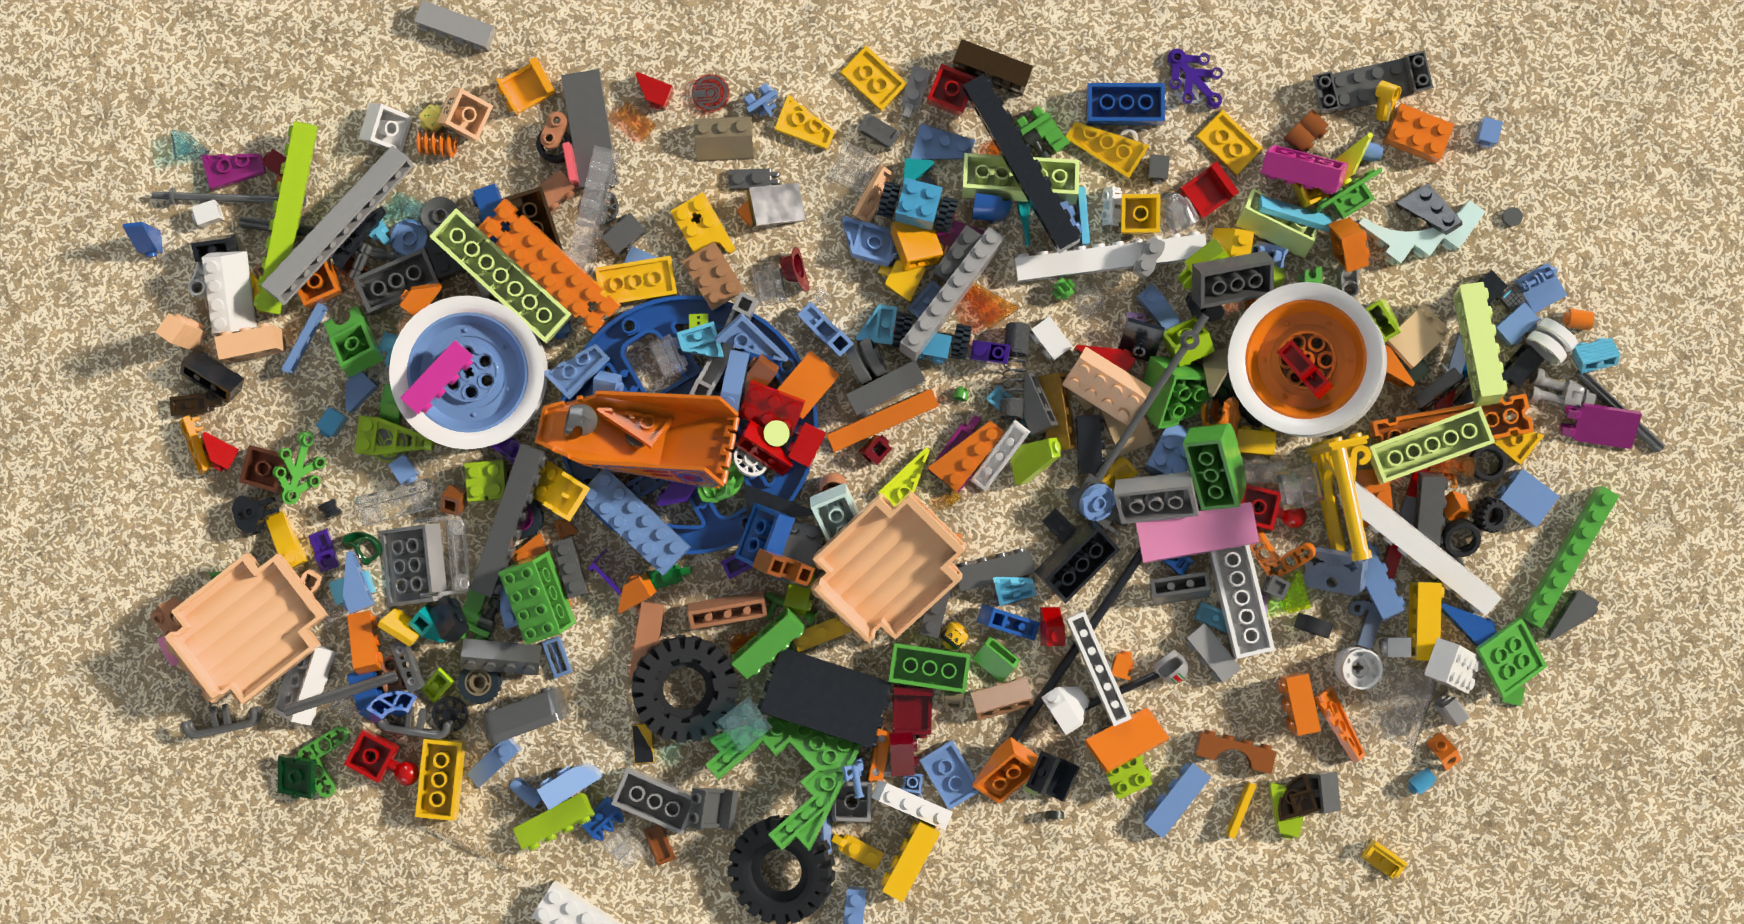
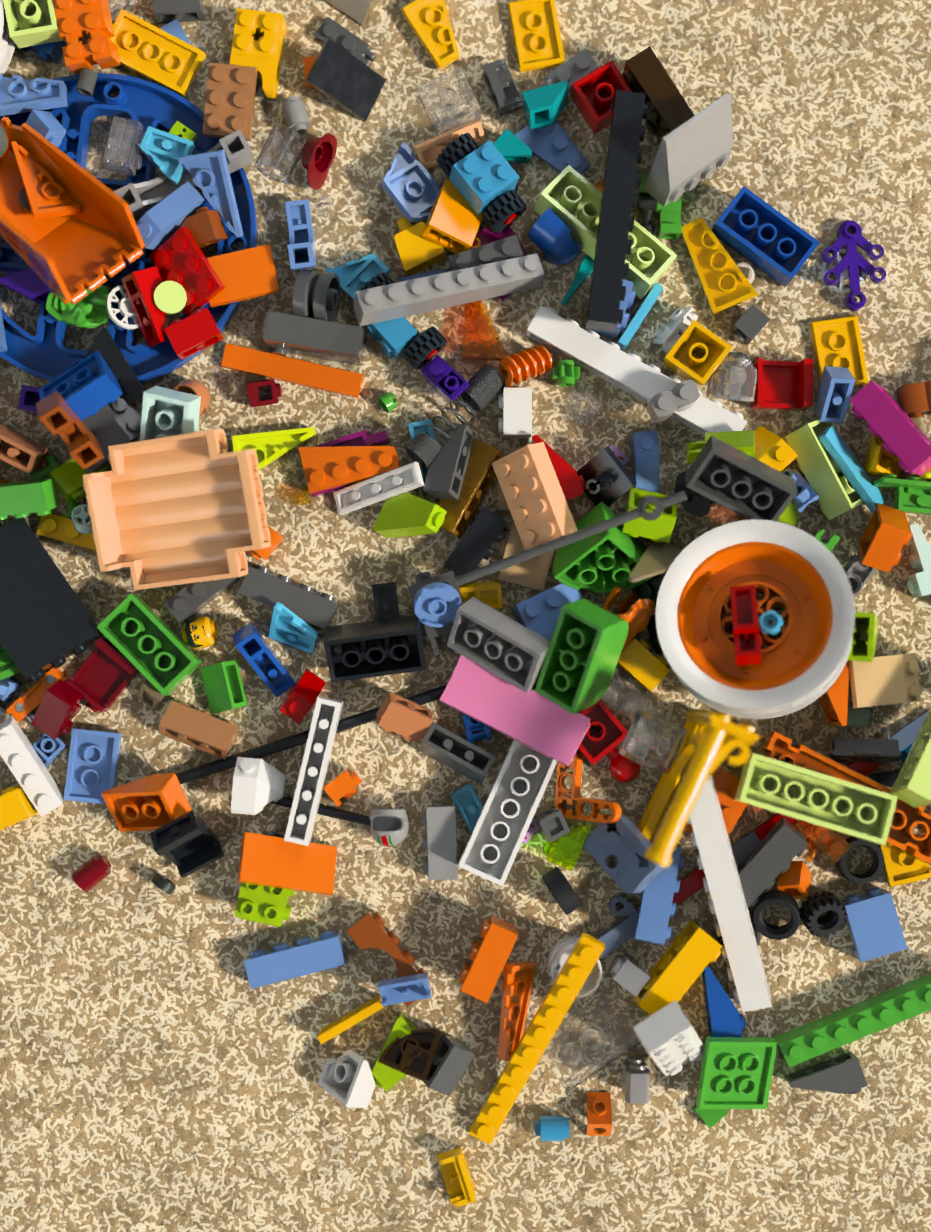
camera: 35 degrees right, 0 degrees up
(610, 333) = (86, 82): none -> dark grey hinge
(758, 251) = (296, 114): none -> light grey brick
(824, 614) = (79, 516): none -> light aqua wheel
(917, 123) = (545, 104): none -> teal slope
(1003, 842) = (92, 872): none -> dark red brick
(1033, 304) = (525, 364): none -> orange piece
(1042, 89) = (692, 152): none -> light grey slope
(1129, 591) = (404, 717): none -> nougat brick
(1247, 174) = (834, 394): none -> medium blue brick
(1262, 762) = (405, 989): none -> medium blue hinge
(1268, 848) = (348, 1079): none -> white slope
(1324, 356) = (770, 616): none -> medium azure plate
(1368, 731) = (536, 1037): none -> yellow plate

